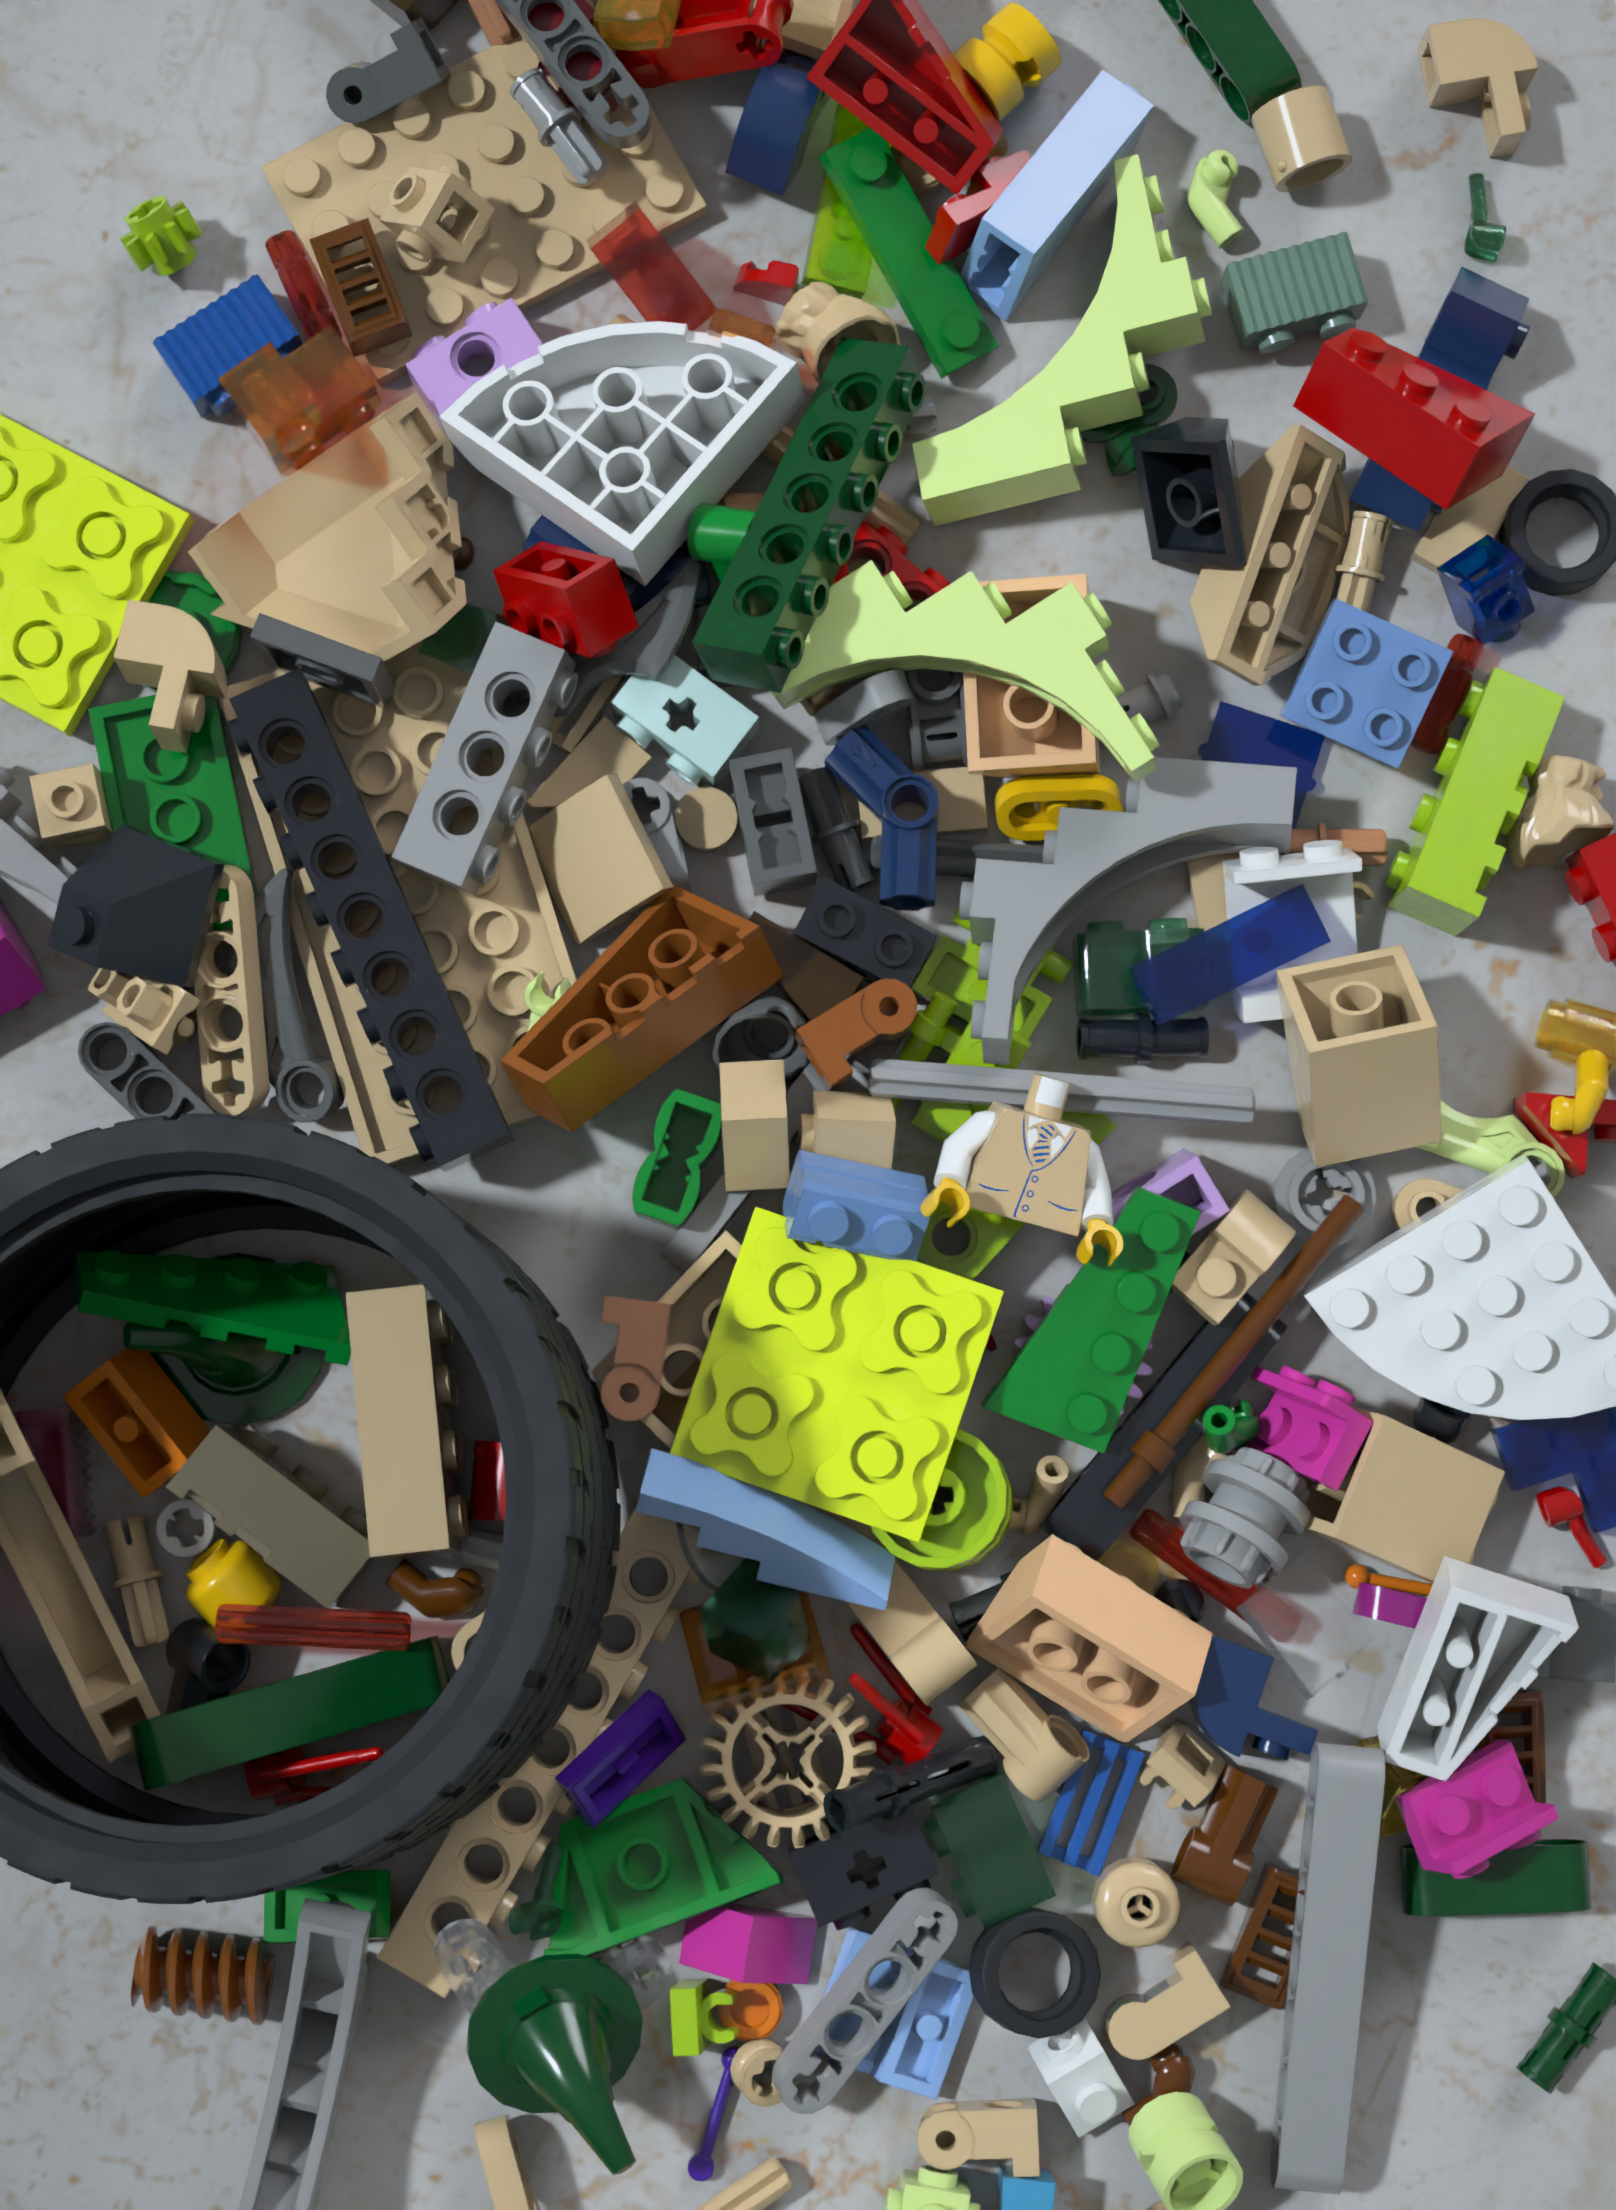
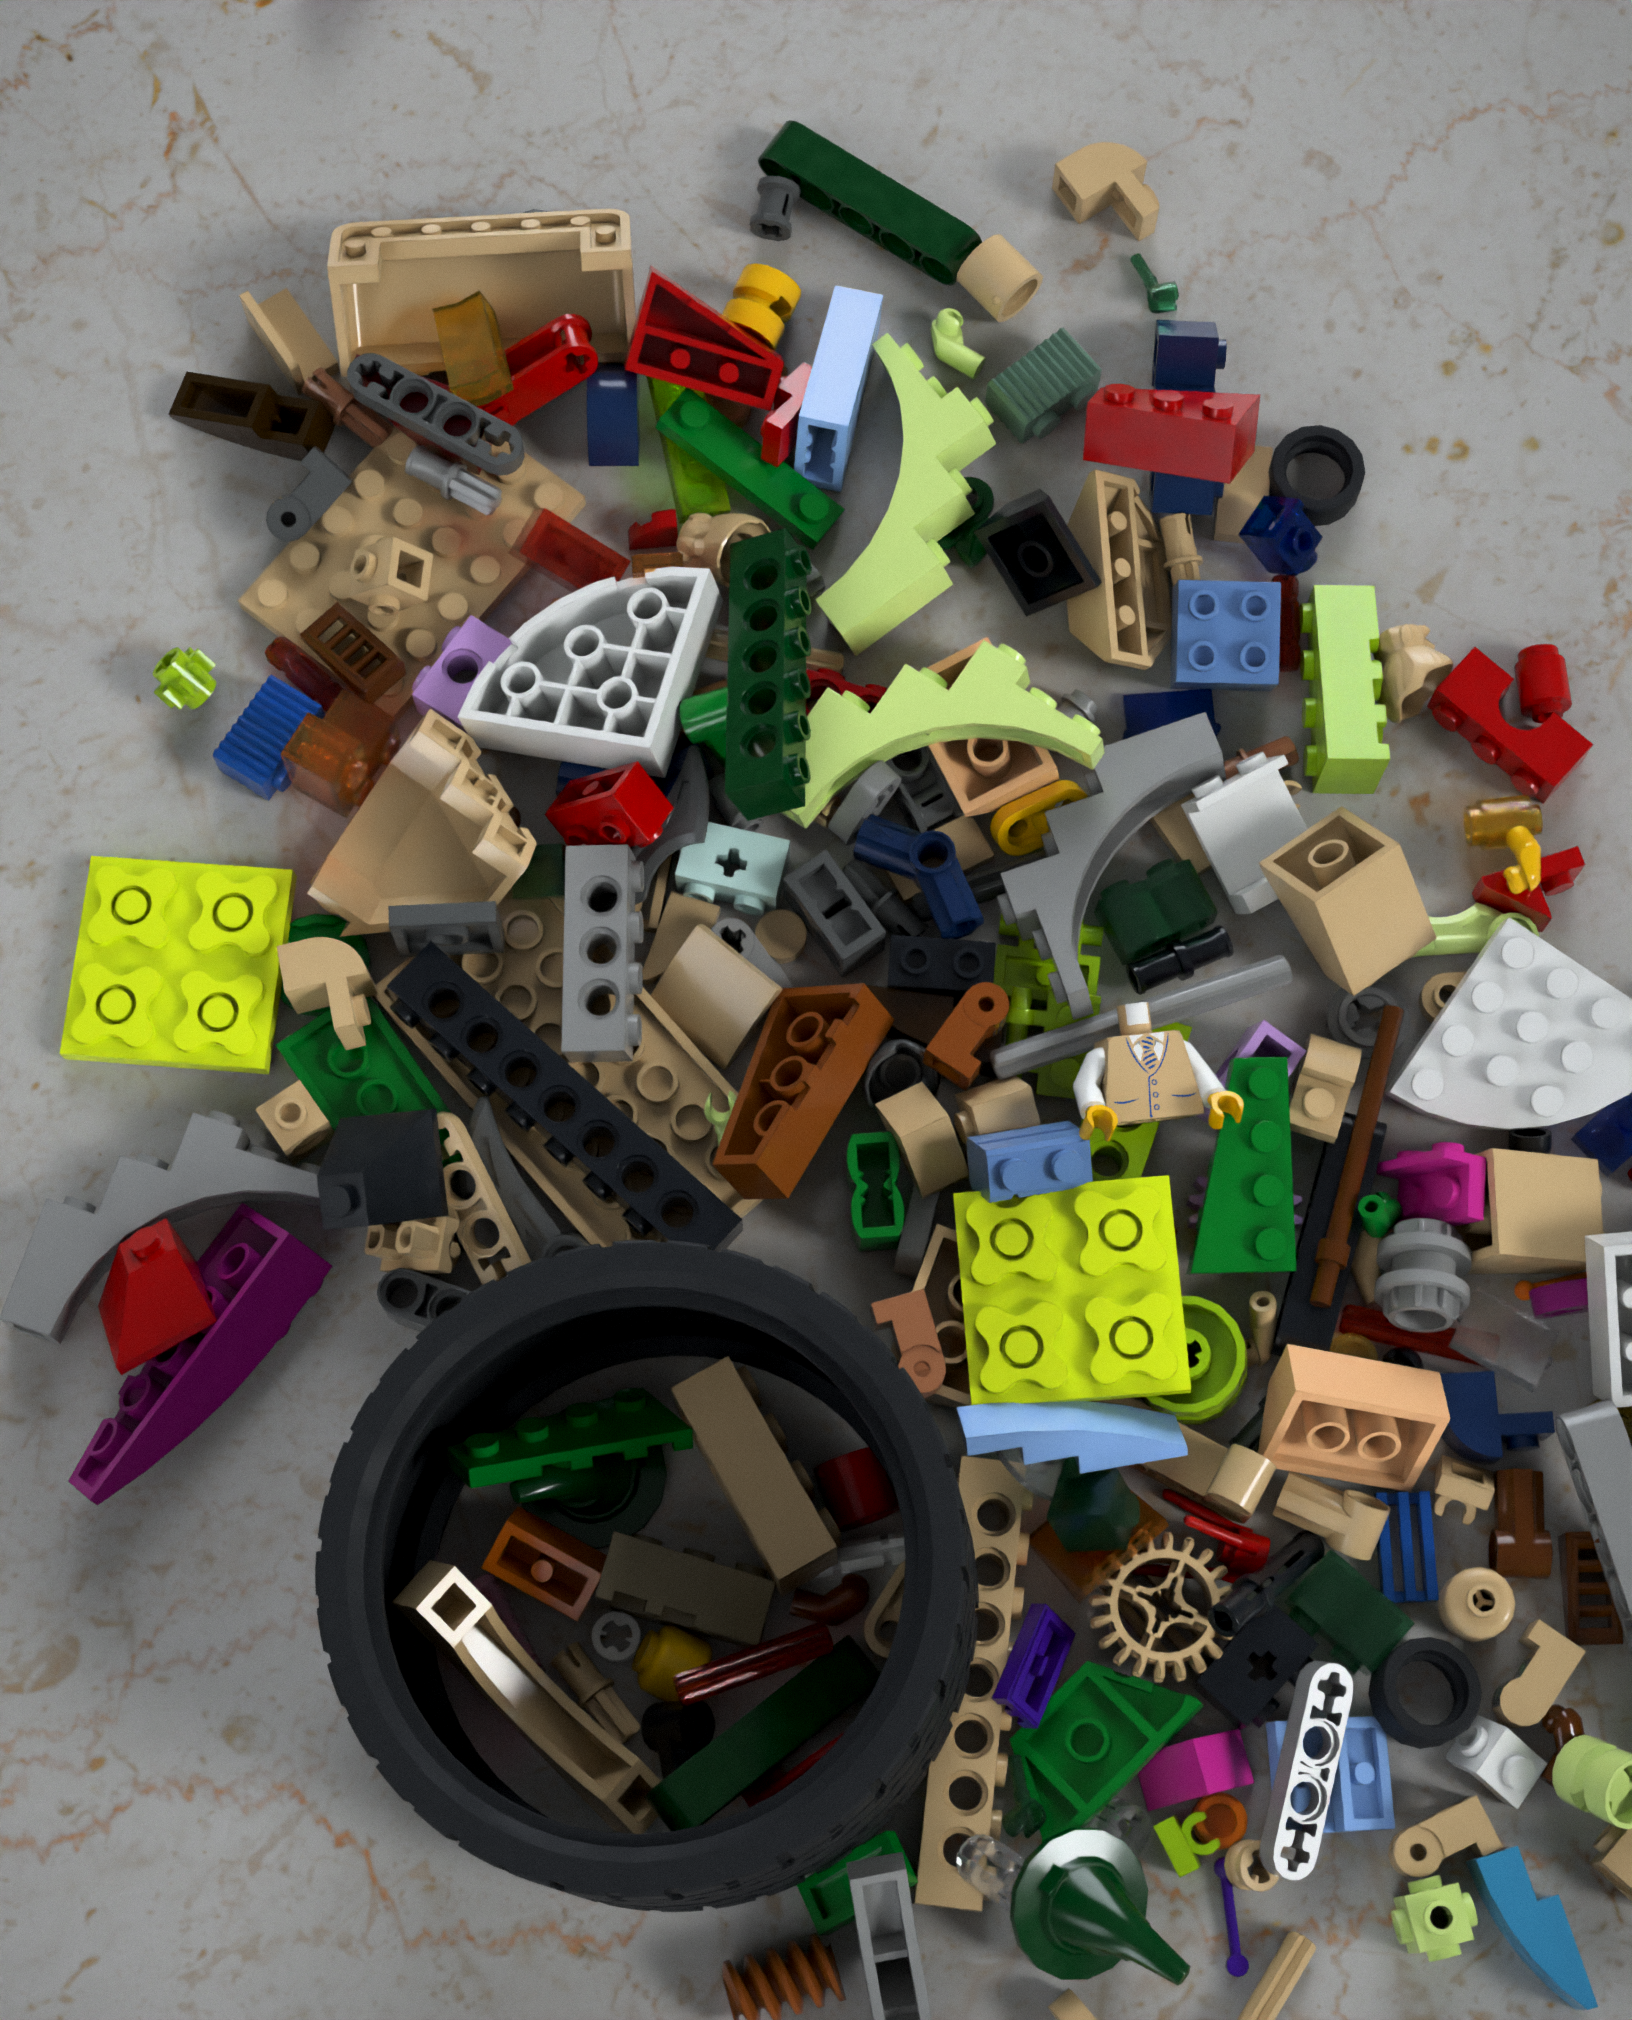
camera: 20 degrees left, 10 degrees down
(1229, 954) = (1218, 867): clear blue tile -> none

